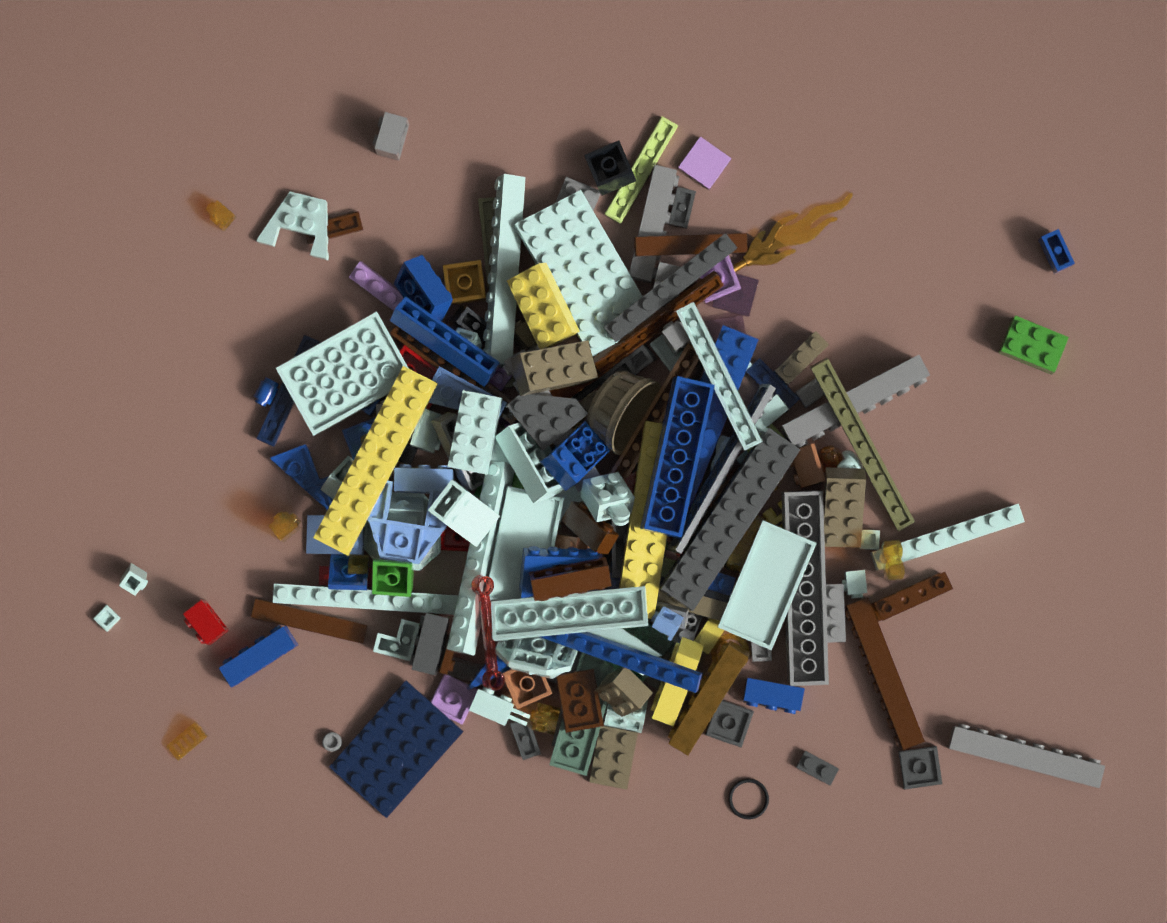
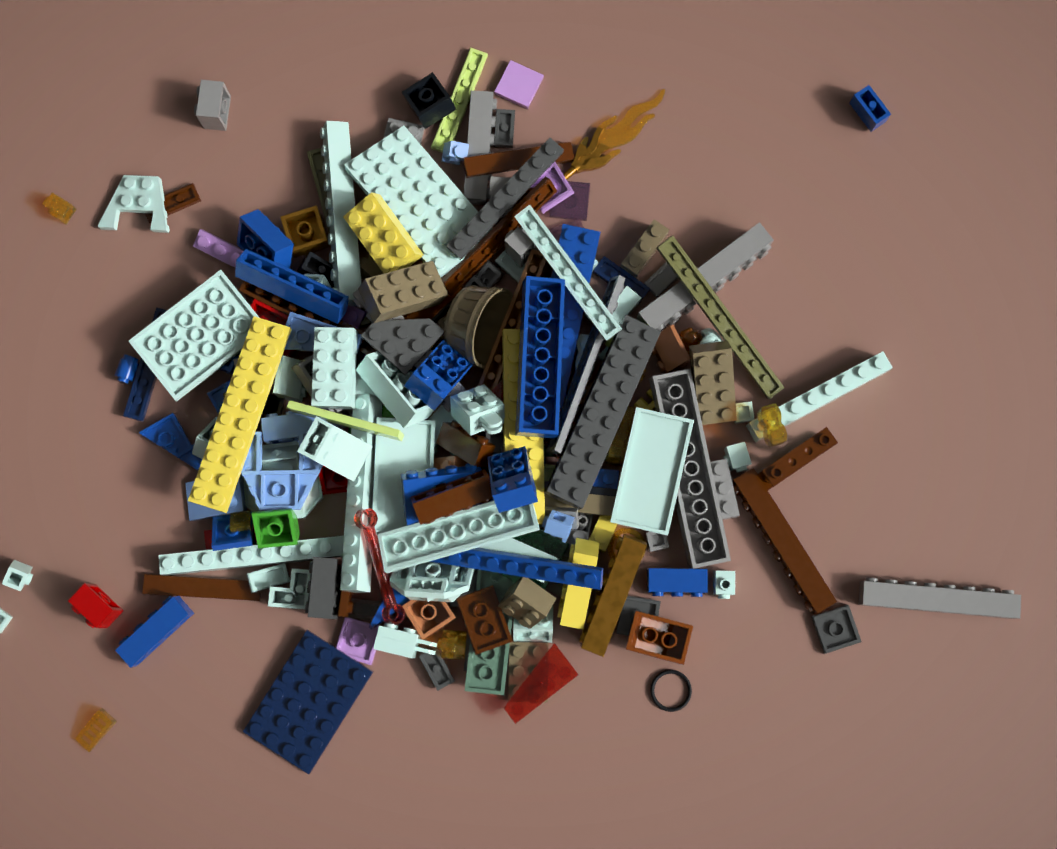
camera: 10 degrees left, 5 degrees down
(285, 525) = (162, 495): clear yellow brick -> none
(332, 741) = (242, 705): light grey tile -> none
(375, 623) = (268, 577): none -> light aqua tile
(488, 491) = (345, 420): none -> yellowish green tile
(627, 226) = (454, 152): none -> light blue brick
(629, 572) = (511, 479): none -> blue slope
(629, 767) = (544, 681): none -> clear red wing
(746, 746) = (659, 637): none -> dark orange slope
(817, 768) = (734, 647): dark grey plate -> none
(818, 705) = (723, 584): none -> light aqua brick
(1033, 345) = (865, 199): bright green brick -> none

